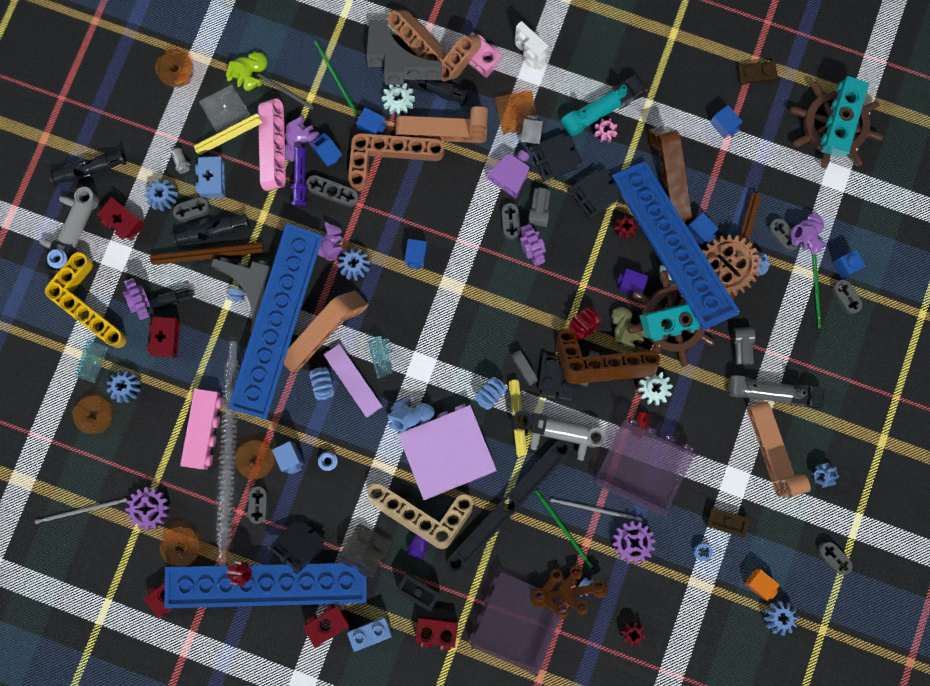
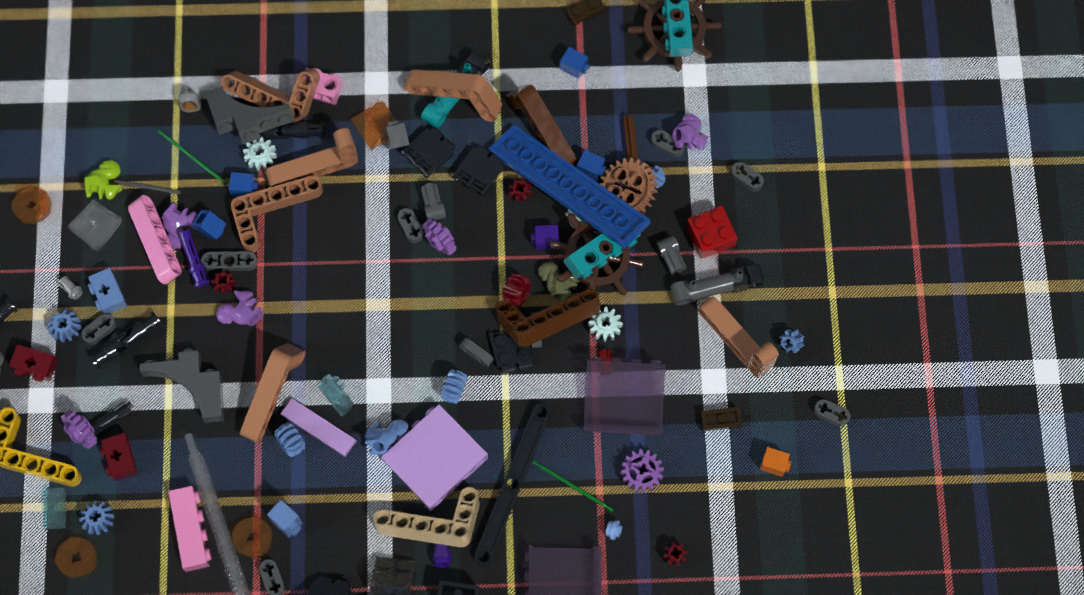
camera: 25 degrees left, 10 degrees down
(206, 253) = (129, 364): reddish brown axle -> none
(228, 134) = (103, 250): light yellow axle -> none
(235, 295) = (174, 391): medium blue bush -> none
(275, 322) = (223, 398): blue plate -> none
(321, 215) = (221, 286): none -> dark red gear
(323, 456) = (320, 505): light blue plate -> none
(347, 262) = (271, 324): medium blue gear -> none
(353, 23) = (189, 101): none -> light grey rock
(415, 253) = (332, 287): blue brick -> none
(510, 173) = (392, 182): medium lavender torso -> none
(516, 406) = (488, 401): light yellow axle -> none
(534, 47) = (369, 60): white plate -> none
(542, 425) = (513, 396): light grey piece -> none
(566, 593) = (579, 551): reddish brown plant -> none
(596, 509) = (595, 456): light grey piece -> none
(605, 103) = (456, 86): none -> nougat beam
(605, 124) = (466, 116): bright pink gear -> none
(703, 558) = (712, 460): medium blue bush -> none
(785, 625) = (804, 492): medium blue gear -> none
(791, 339) = (711, 232): none -> red brick
(816, 290) = (717, 180): green piece -> none
(849, 264) = (736, 146): blue brick -> none

